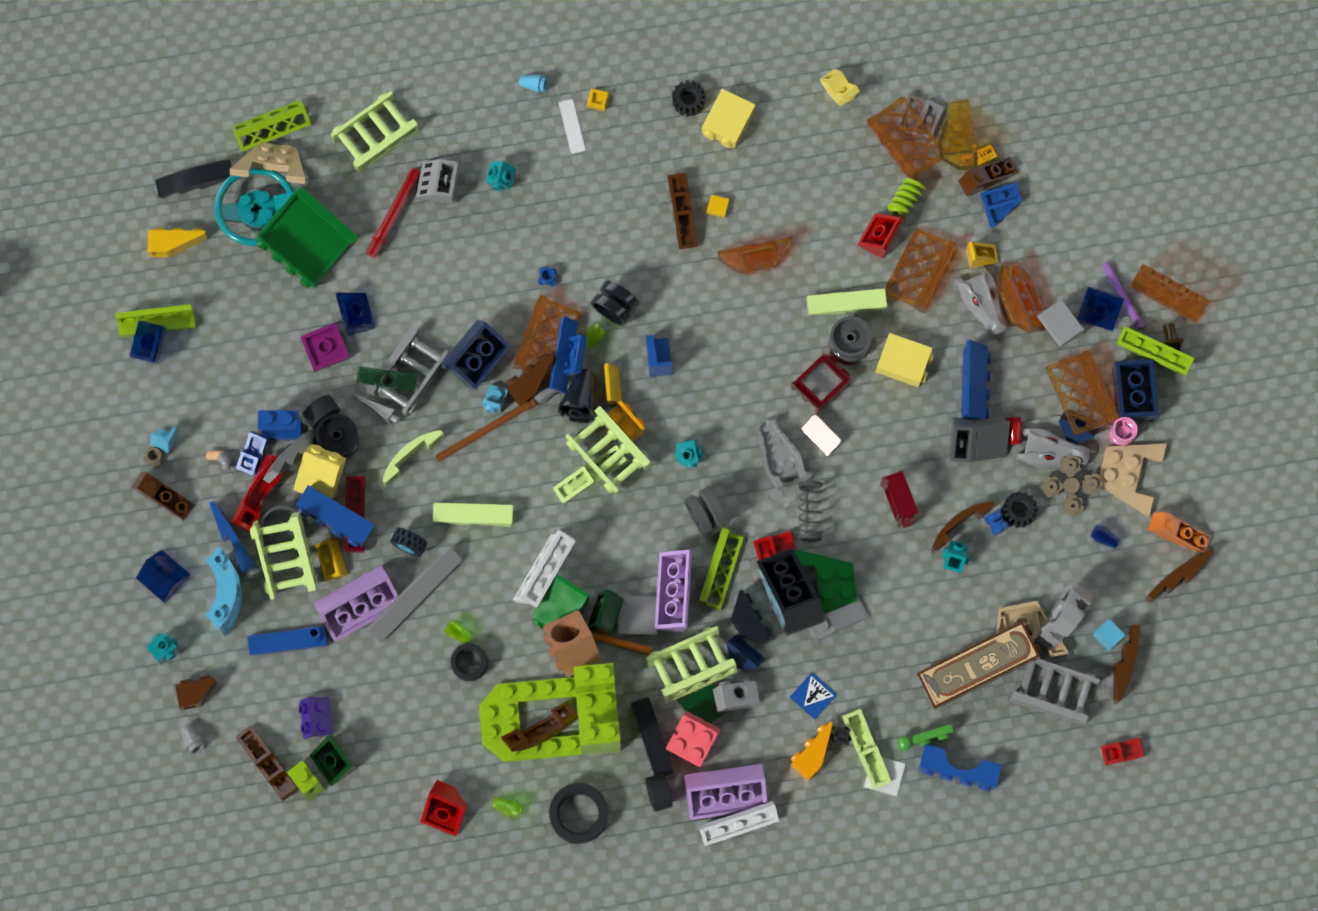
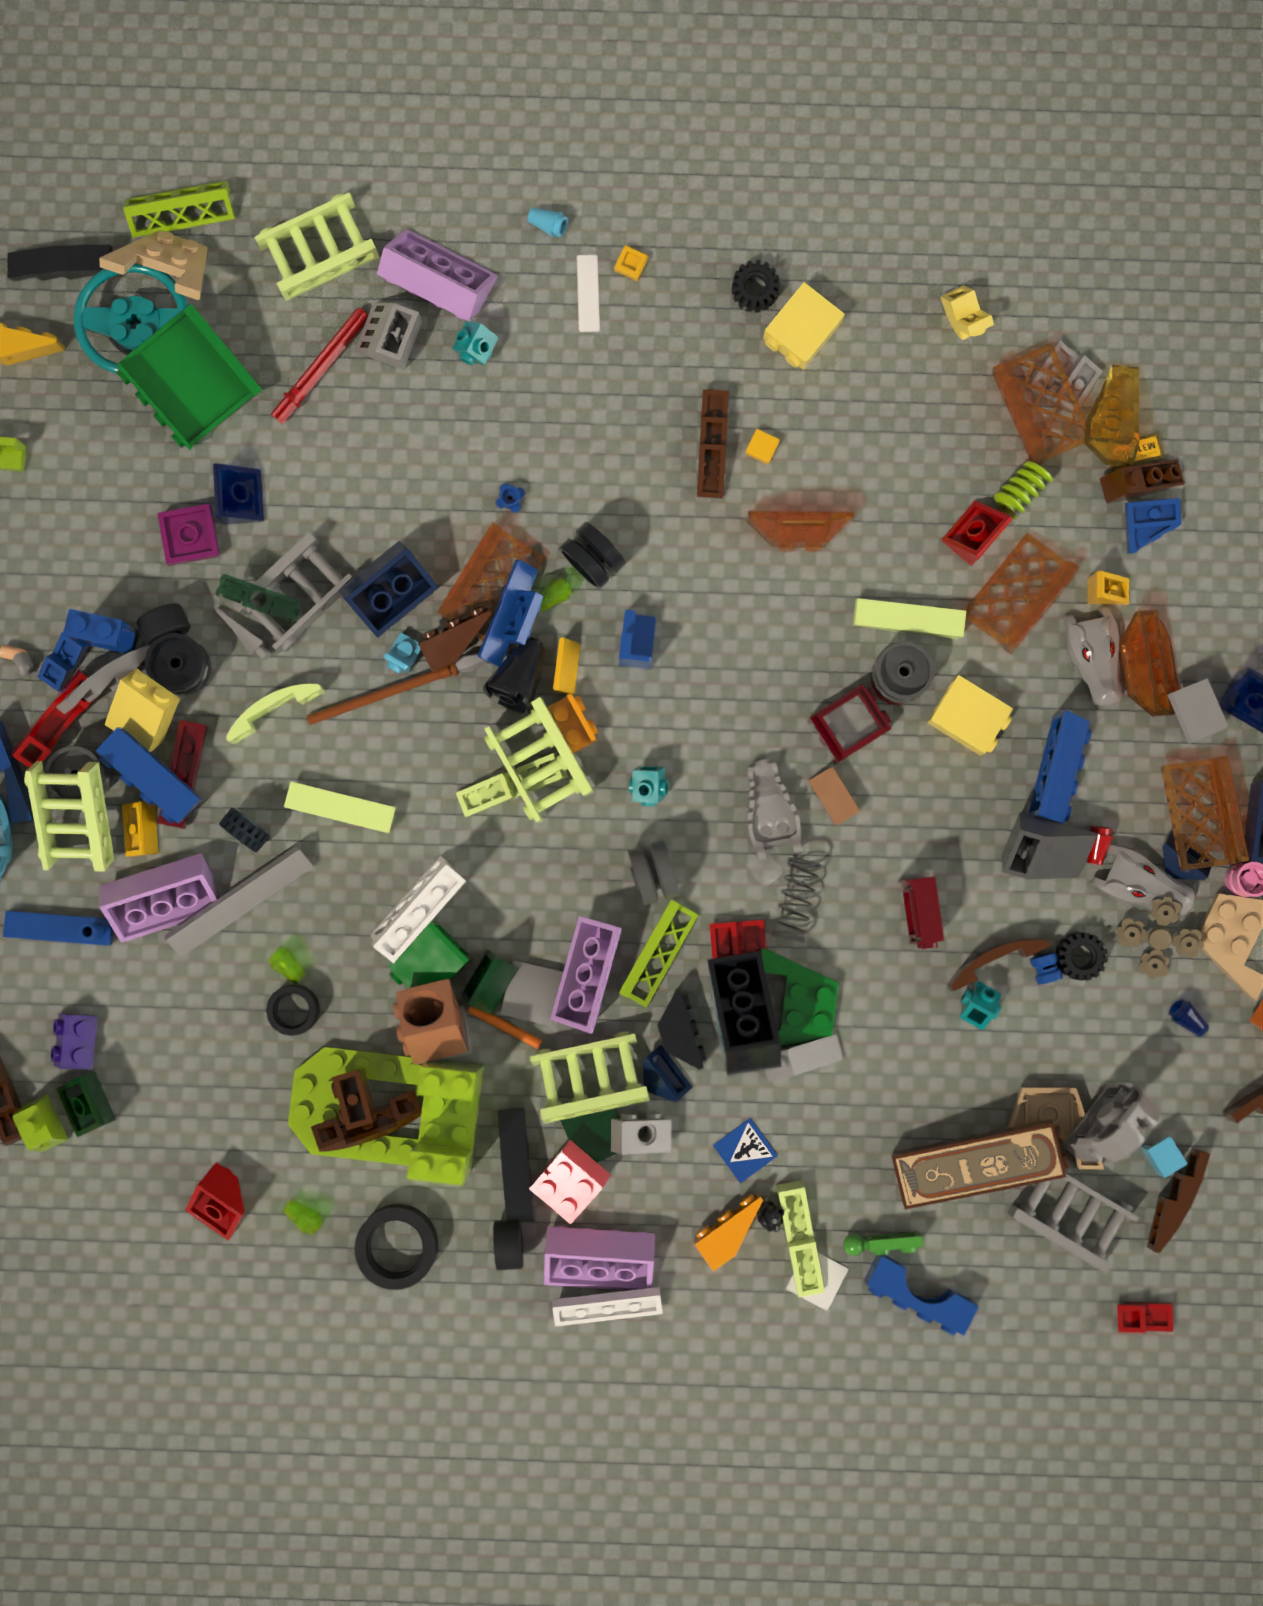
camera: 15 degrees right, 10 degrees up
(463, 134) = (436, 274): none -> lavender slope
(528, 710) = (354, 1099): none -> reddish brown brick

